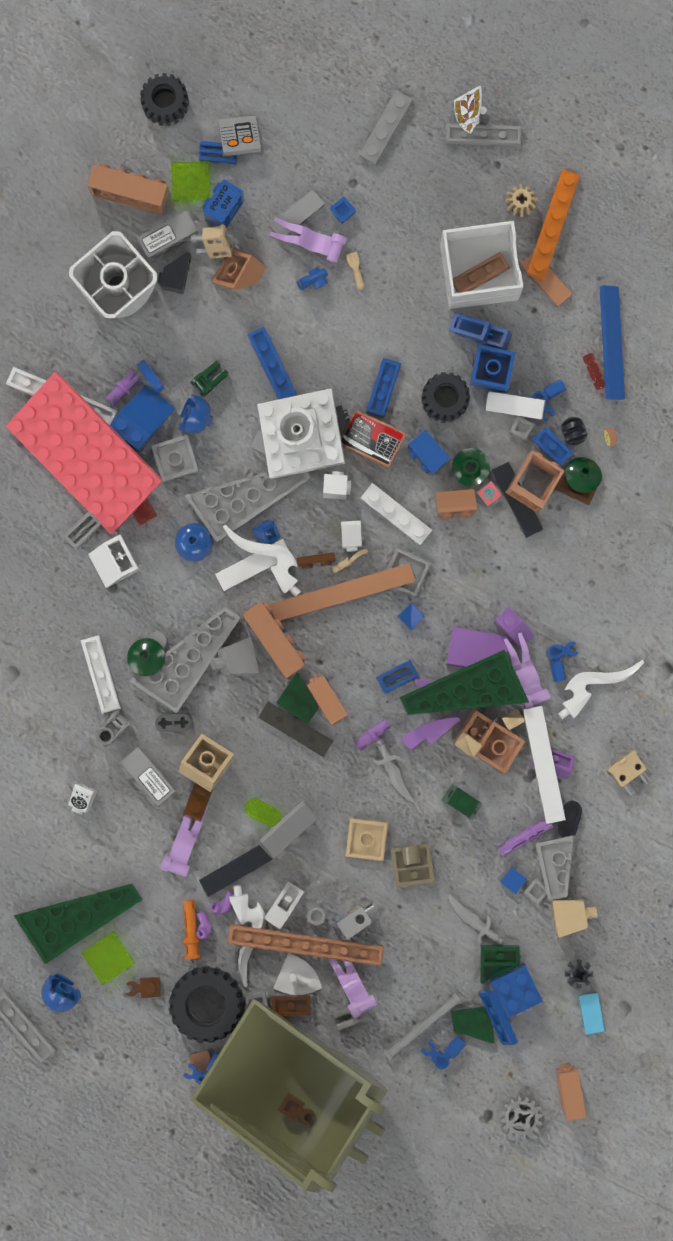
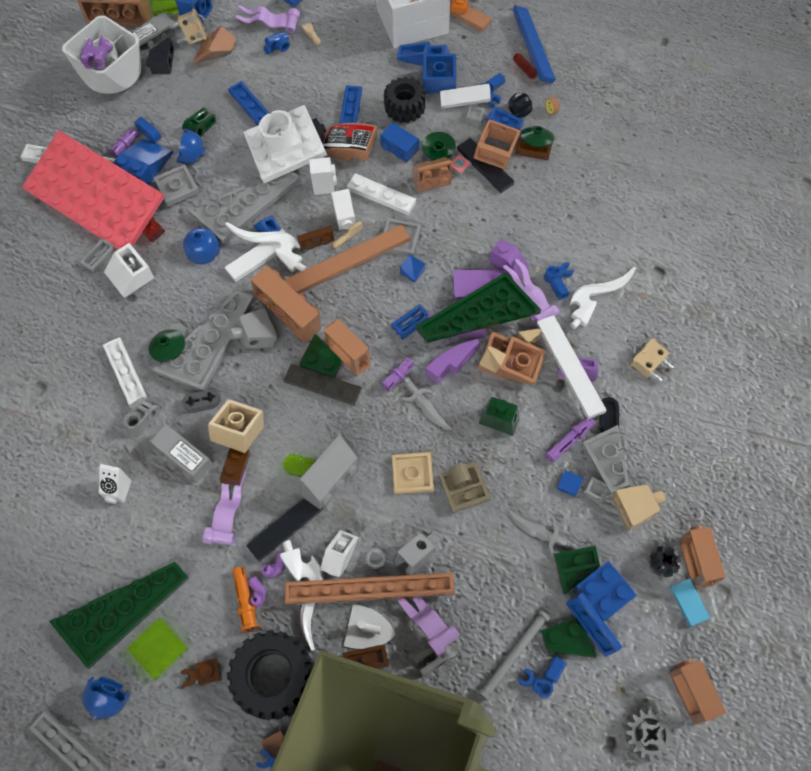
camera: 10 degrees left, 20 degrees down
(107, 295) = (95, 53): none -> medium lavender animal
(611, 979) = (702, 557): none -> nougat window

